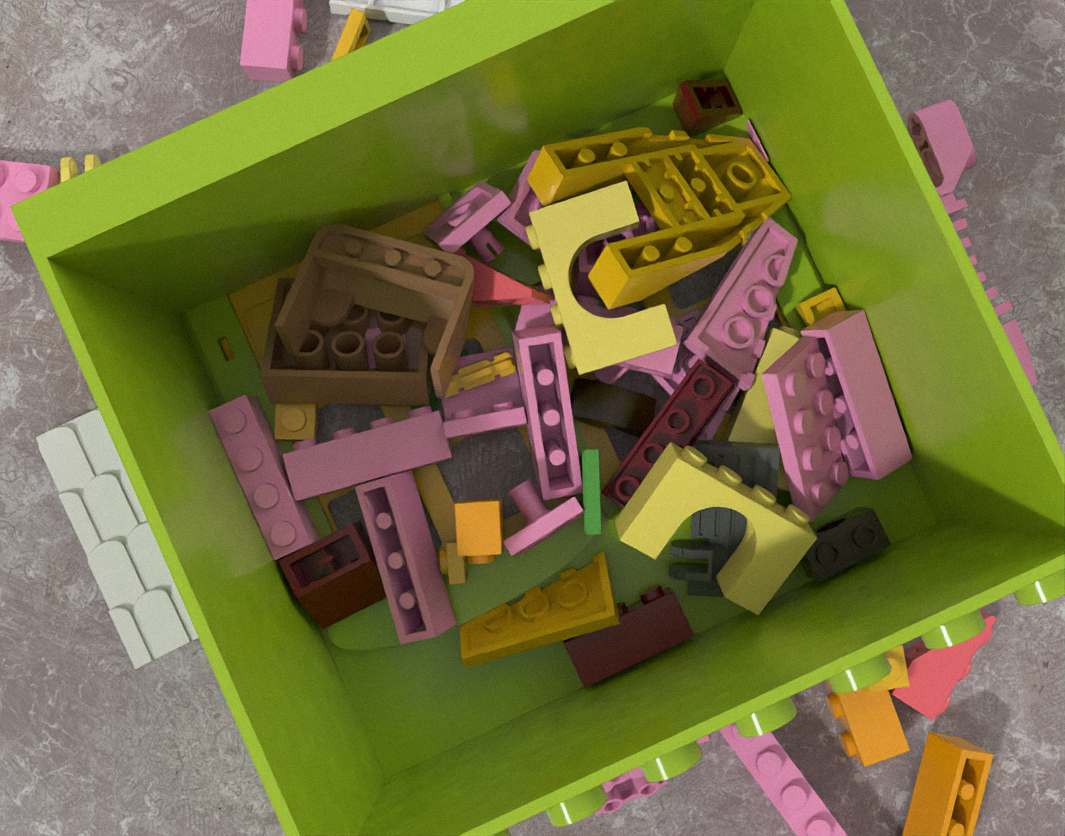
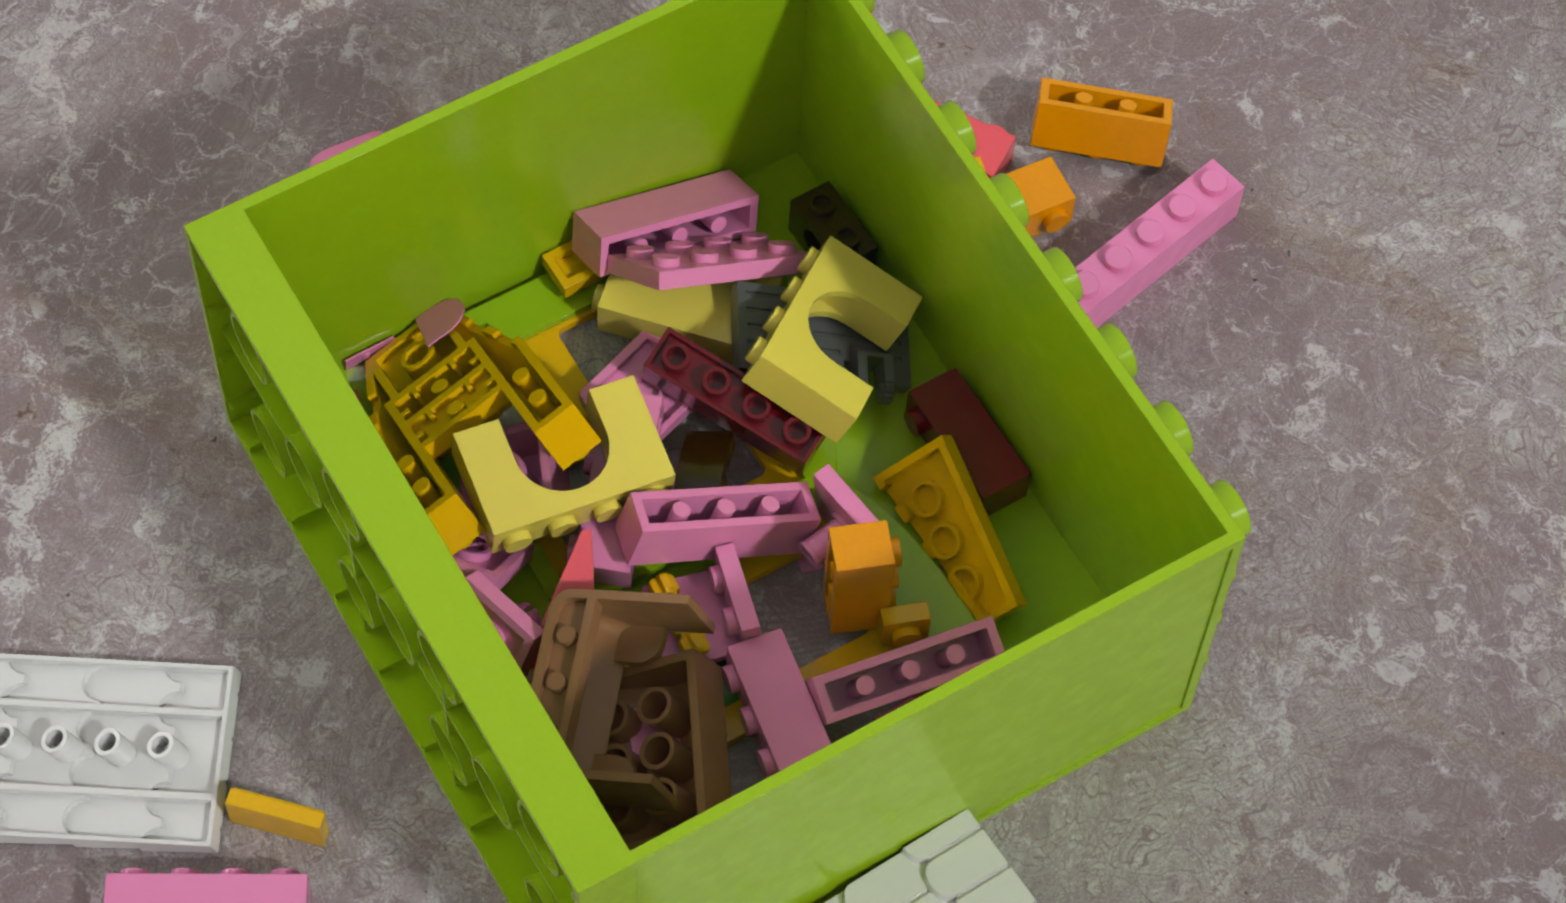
camera: 105 degrees left, 25 degrees down
(591, 491) = (802, 463): bright green tile -> none
(738, 312) = (574, 343): bright pink wing -> none
(772, 194) = (440, 320): none -> piece

